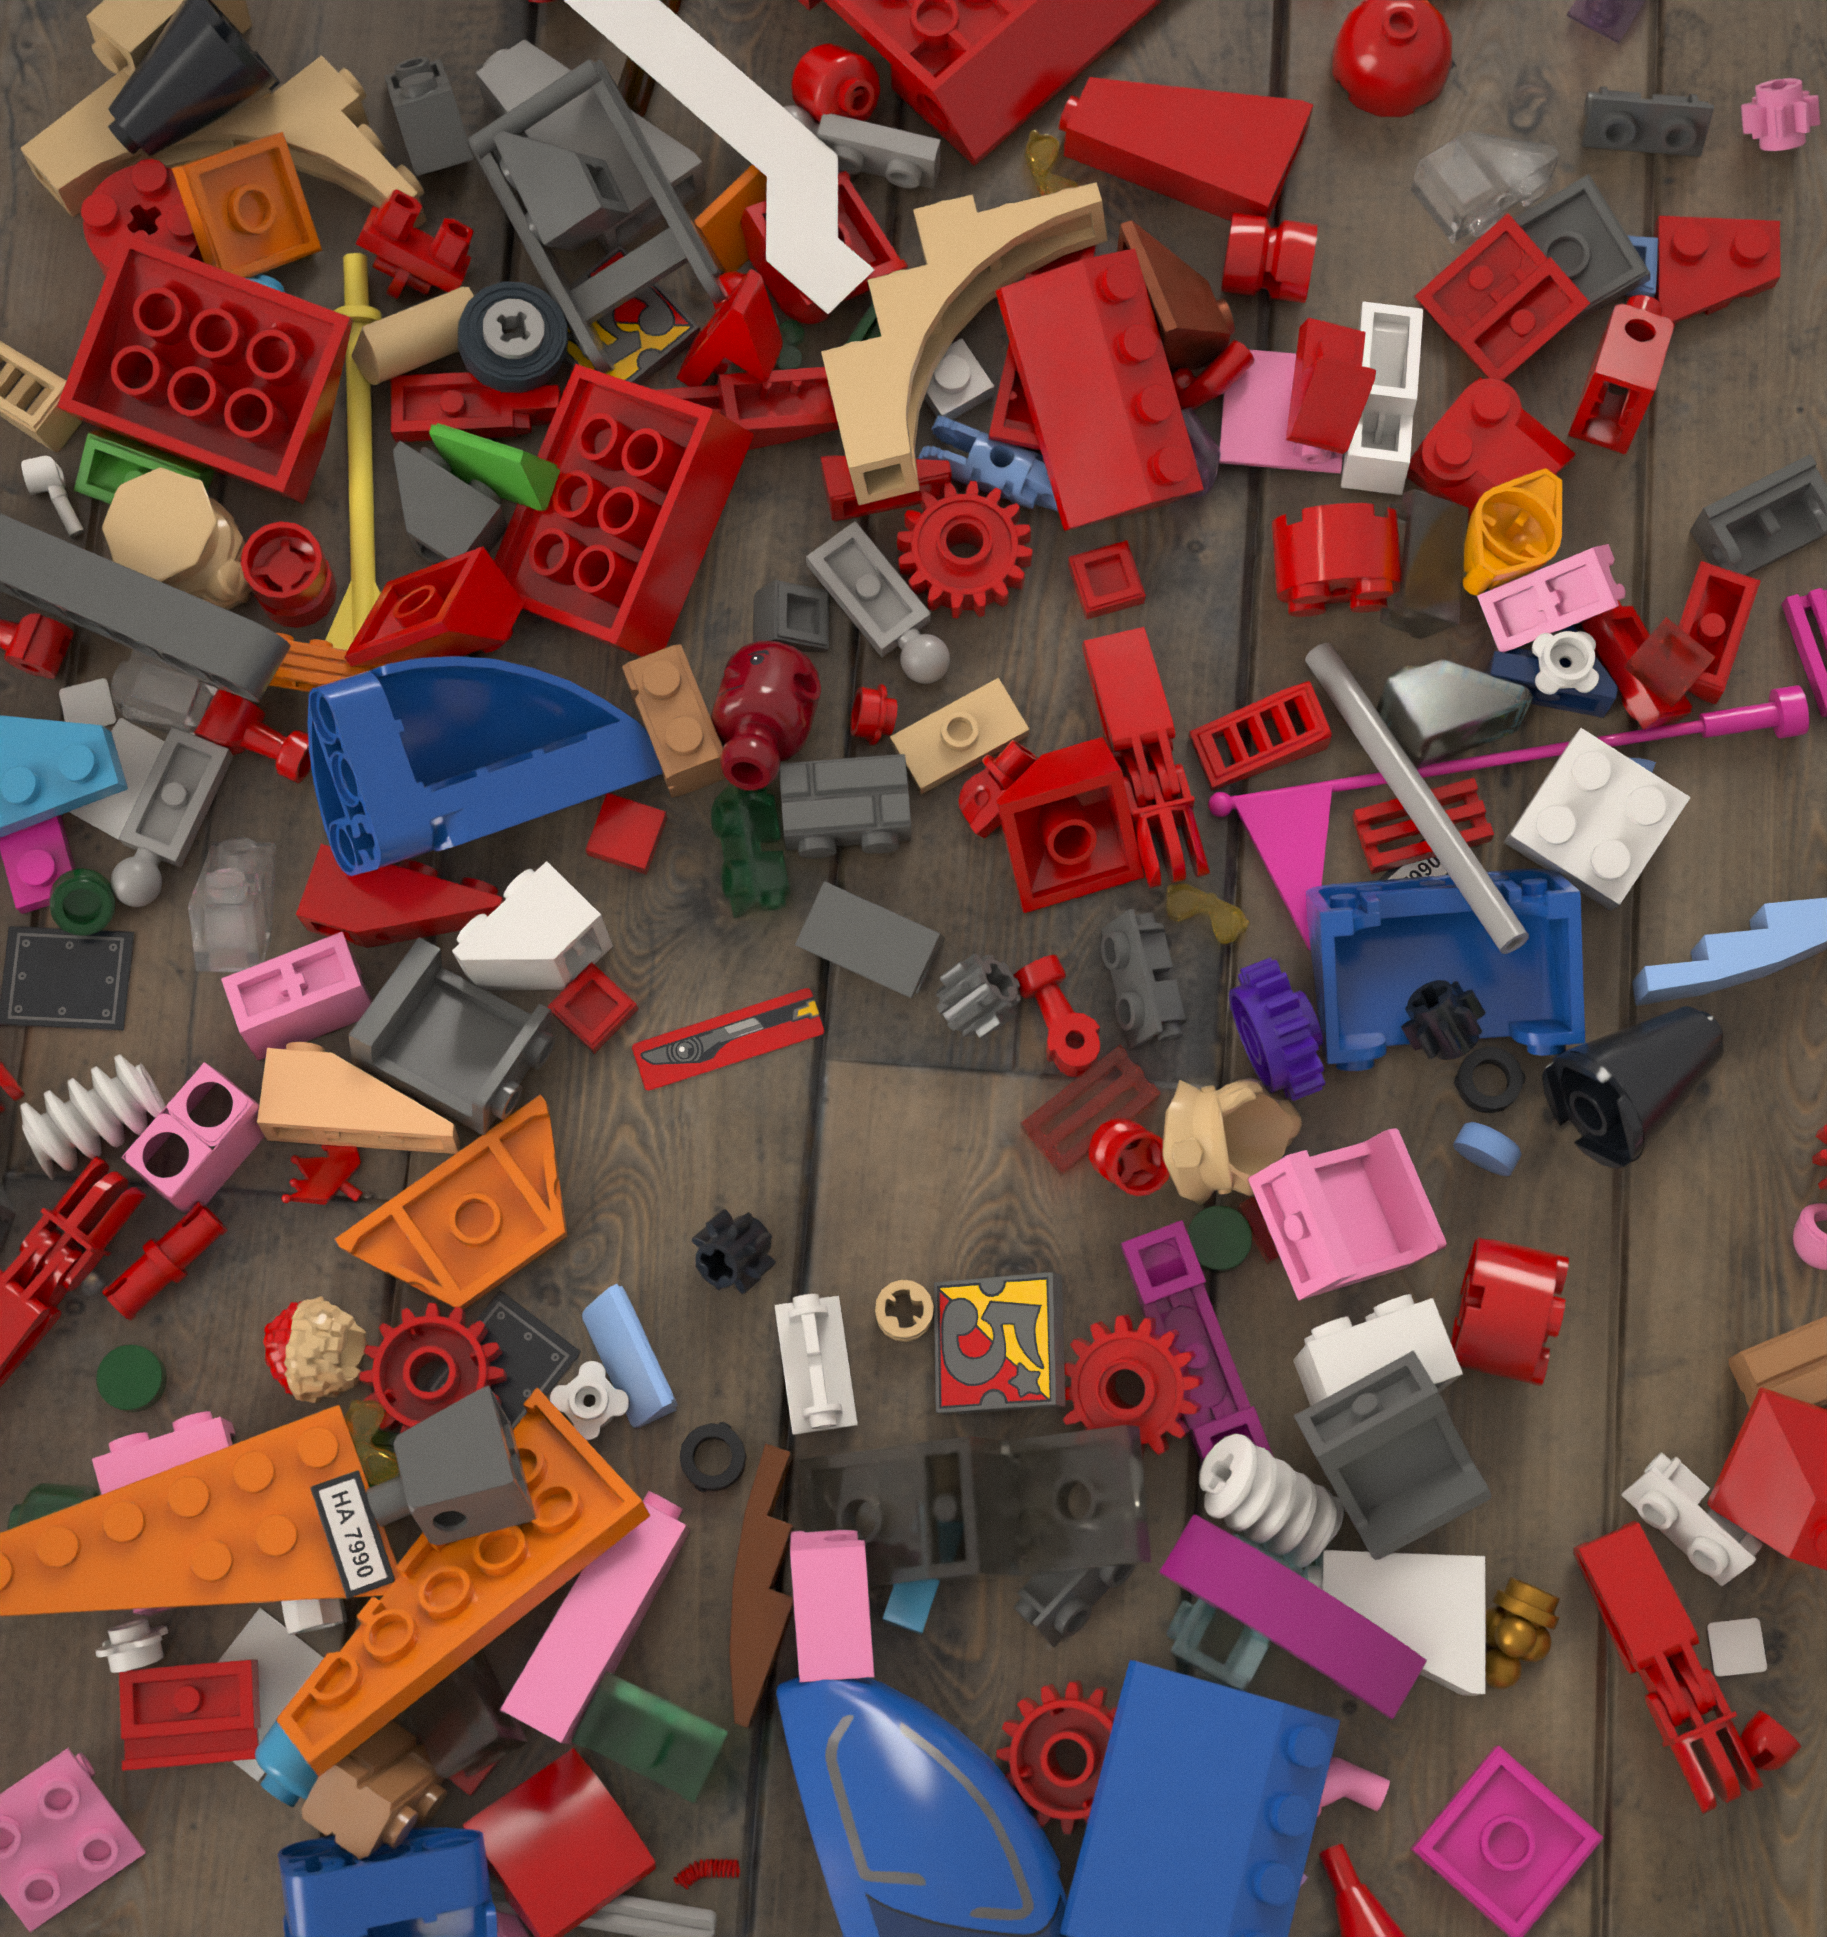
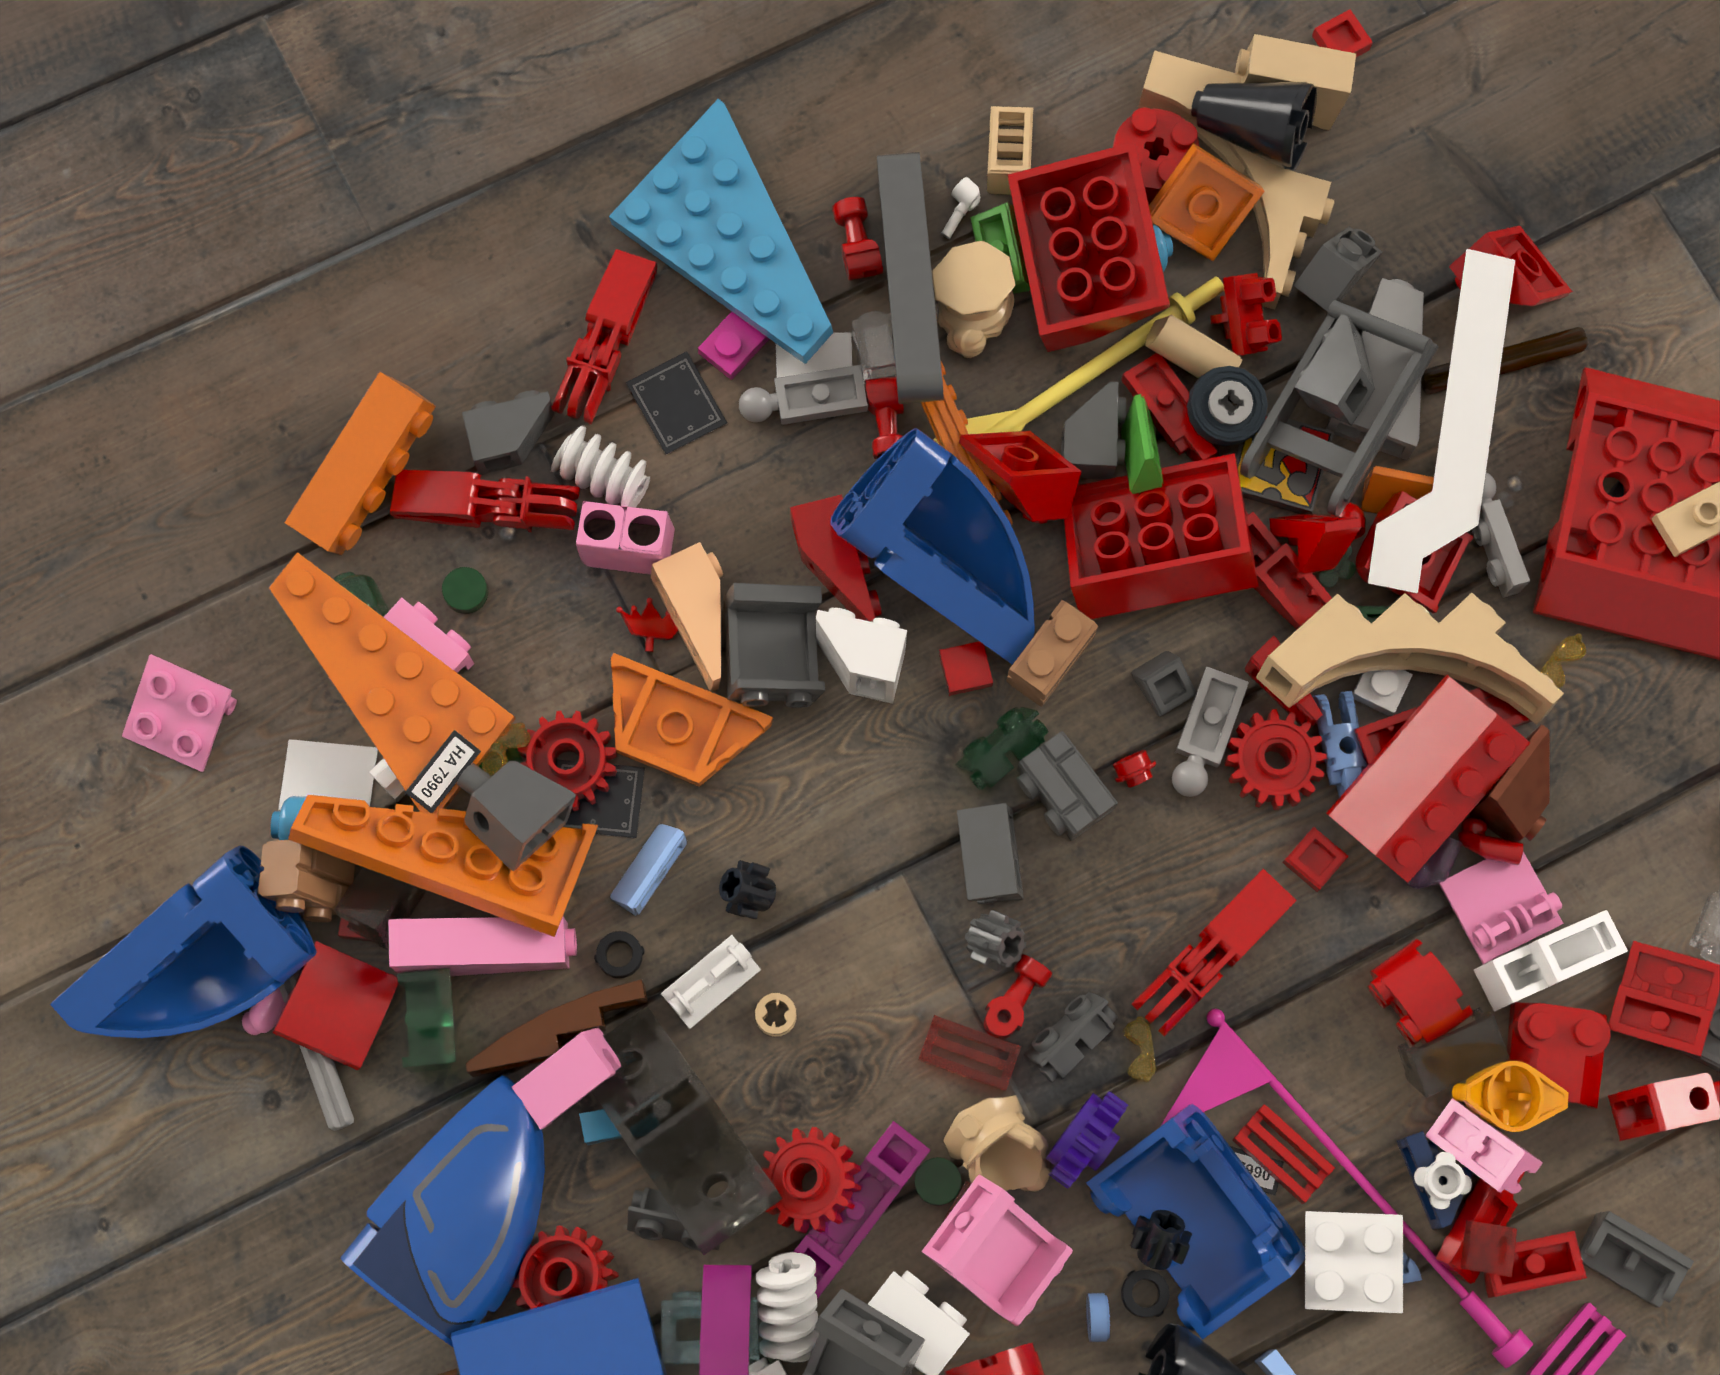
camera: 55 degrees right, 0 degrees up
(82, 902) = (724, 382): dark green tile -> none
(88, 703) = (845, 308): white sticker -> none
(132, 1645) = (312, 689): white plate -> none
(164, 1260) = (543, 564): red pin -> none
(189, 1714) = (292, 746): red plate -> none
(233, 905) = (775, 469): clear slope -> none
(289, 574) = (995, 371): red wheel -> none
(298, 995) = (744, 539): bright pink hinge -> none
(314, 1350) = (541, 683): tan piece -> none
(590, 1381) = (614, 872): white plate -> none
(593, 1008) = (846, 715): red tile -> none
(693, 1874) = (367, 1096): red leg -> none
(727, 1039) = (878, 807): red sticker -> none
(764, 711) = (1089, 701): dark red piece -> none
(836, 83) = (1525, 495): red head -> none
(959, 735) = (1155, 830): tan plate -> none
(982, 790) = (1136, 873): red piece -> none
(999, 1344) = (788, 1084): tile -> none
(1069, 826) = (1137, 930): red slope -> none
(1141, 1164) = (946, 1103): red wheel -> none
(1189, 143) = (1638, 739): red slope -> none
(1269, 258) = (1593, 832): red wheel -> none
(1276, 706) = (1280, 1040): red slope -> none
(1328, 386) = (1528, 919): red slope -> none
(1417, 799) = (1293, 1138): light grey piece -> none
(1449, 709) = (1366, 1124): clear smoke slope -> none

